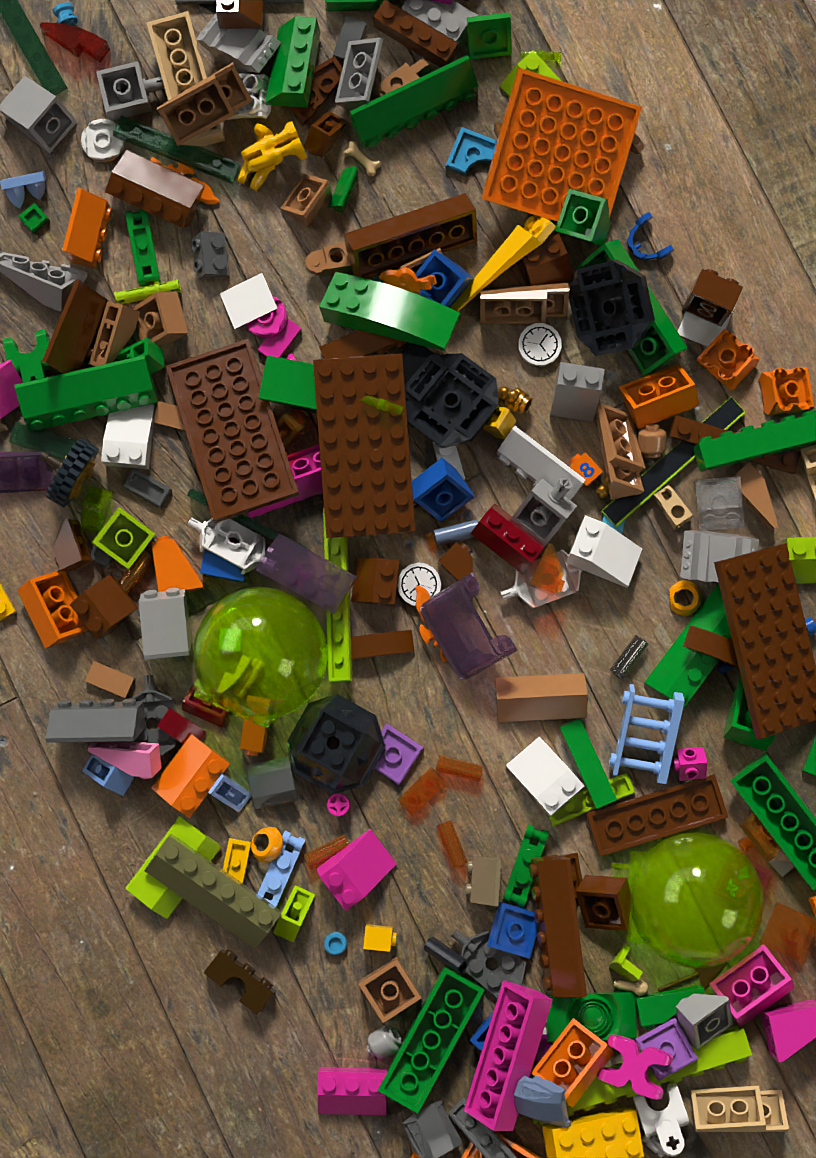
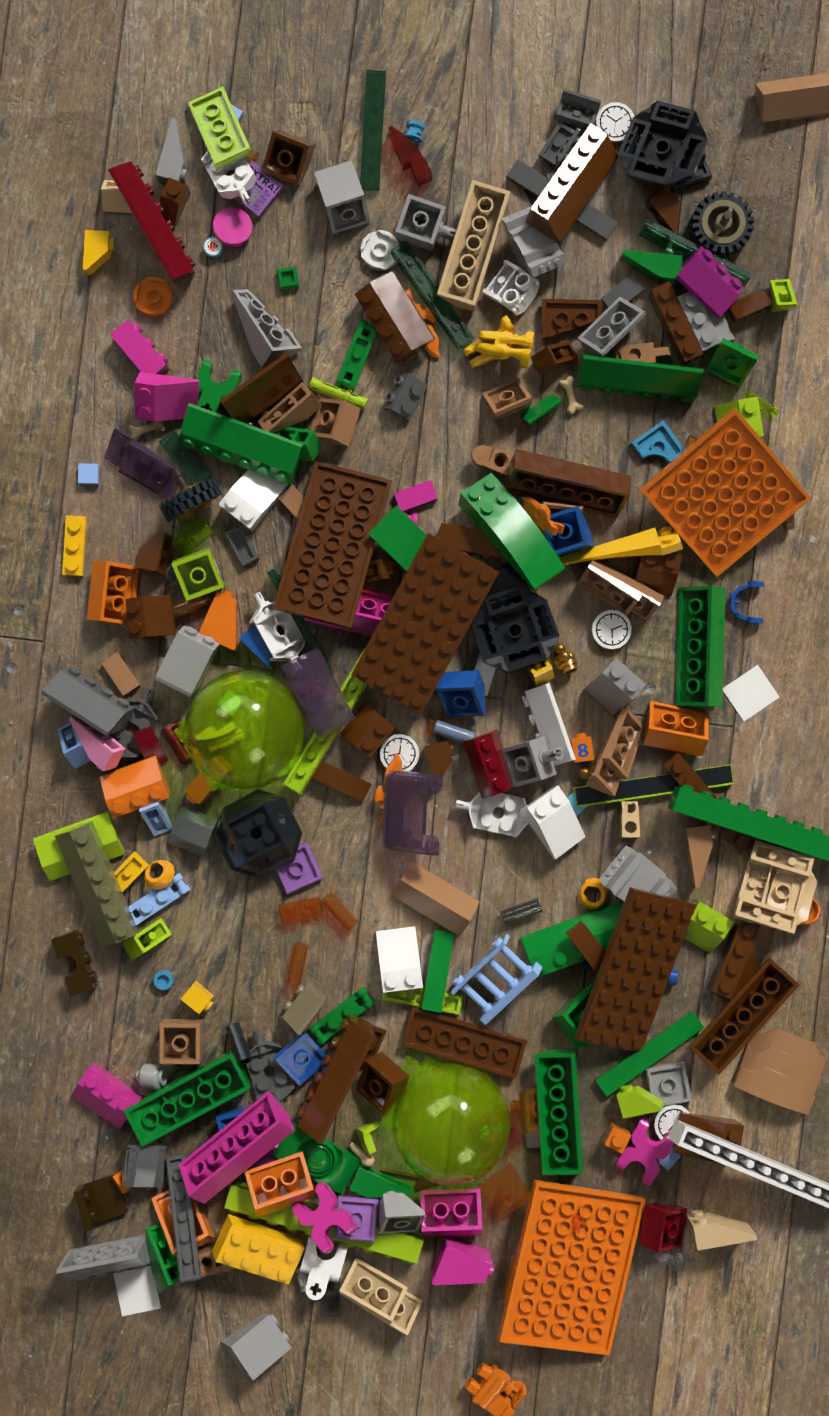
camera: 25 degrees right, 5 degrees up
(15, 187) = (289, 243): light blue tile -> none
(86, 229) = (322, 314): orange slope -> none
(205, 104) = (474, 276): medium nougat slope -> none
(248, 300) = (411, 450): white sticker -> none
(270, 323) = (416, 472): dark pink tile -> none
(294, 63) = (566, 286): green slope -> none
(325, 852) = (201, 909): clear orange piece -> none
(335, 805) = (231, 880): dark pink wheel -> none
(356, 869) = (213, 937): dark pink slope -> none
(382, 404) = (458, 602): clear neon green piece -> none
(541, 1101) = (238, 1198): sand blue slope -> none
(548, 573) = (502, 810): clear orange slope -> none
(584, 217) = (709, 555): green slope -> none
(591, 302) = (666, 645): black piece -> none
(652, 441) = (647, 760): medium nougat head -> none
(690, 763) = (514, 1021): dark pink brick -> none
(712, 297) = (766, 681): reddish brown brick -> none
(720, 504) = (666, 842): clear slope -> none
(728, 359) = (747, 735): orange slope -> none
(786, 390) = (775, 788): orange slope -> none

